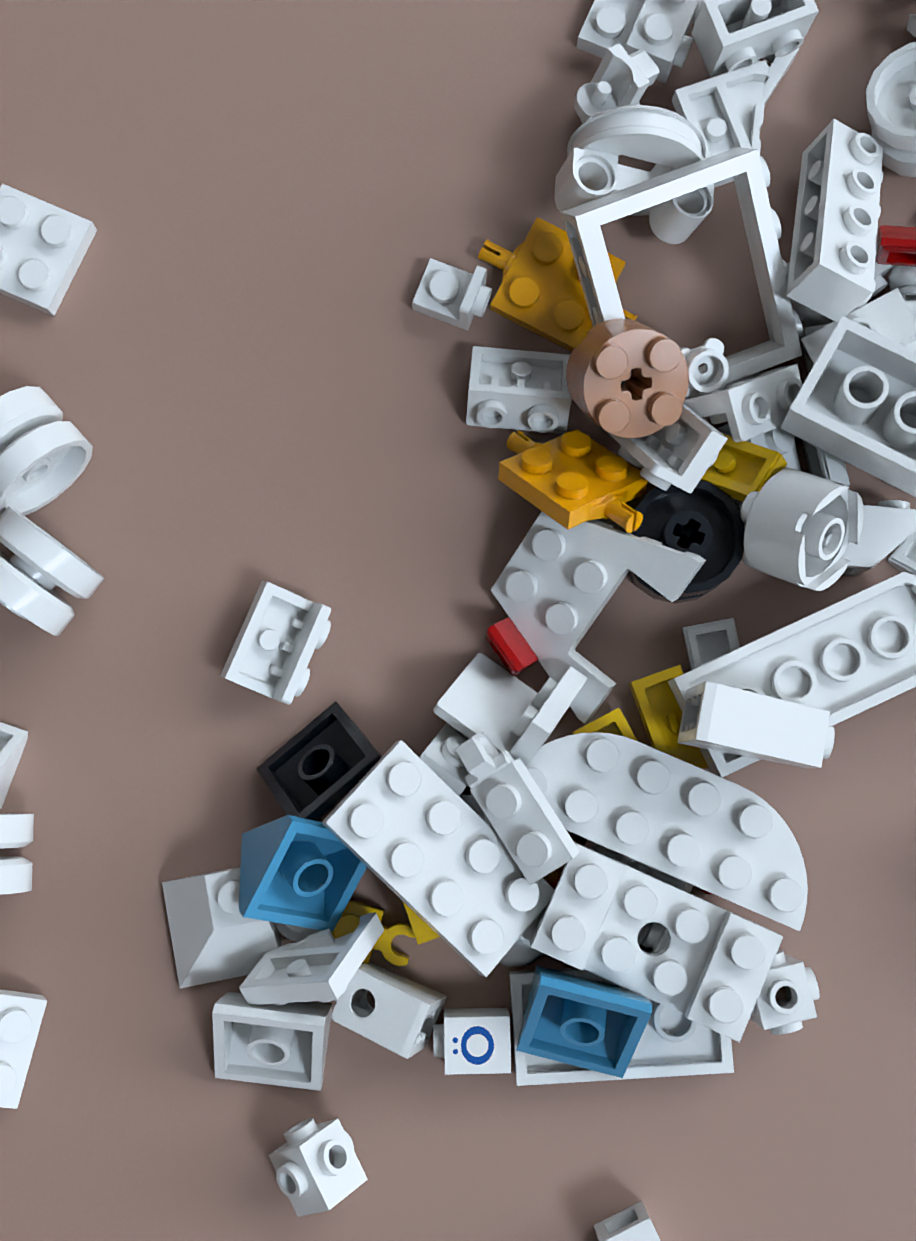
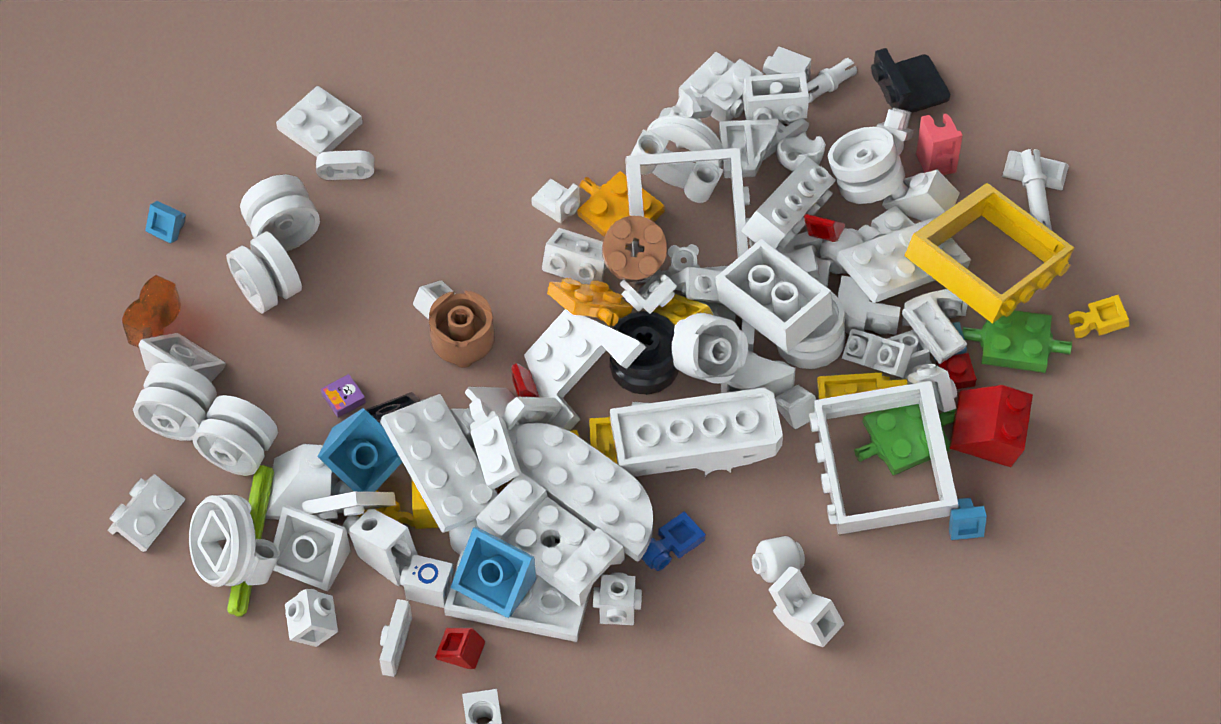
camera: 20 degrees right, 25 degrees down
(88, 897) = (235, 435): none -> white wheel
(96, 322) = (345, 165): none -> white beam
(136, 1090) = (243, 555): none -> white piece
(174, 1044) = (258, 500): none -> lime axle
(232, 740) = (343, 395): none -> medium lavender tile
(277, 643) = (385, 348): white bracket -> none
(321, 526) = (428, 295): none -> white slope
(372, 550) = (461, 328): none -> nougat brick
(454, 1156) = (394, 638): none -> white plate
(556, 1129) = (460, 647): none -> red slope
(755, 726) = (640, 429): white slope -> none
(806, 106) = (794, 150): none -> white hair
(831, 847) = (678, 536): none -> blue plate

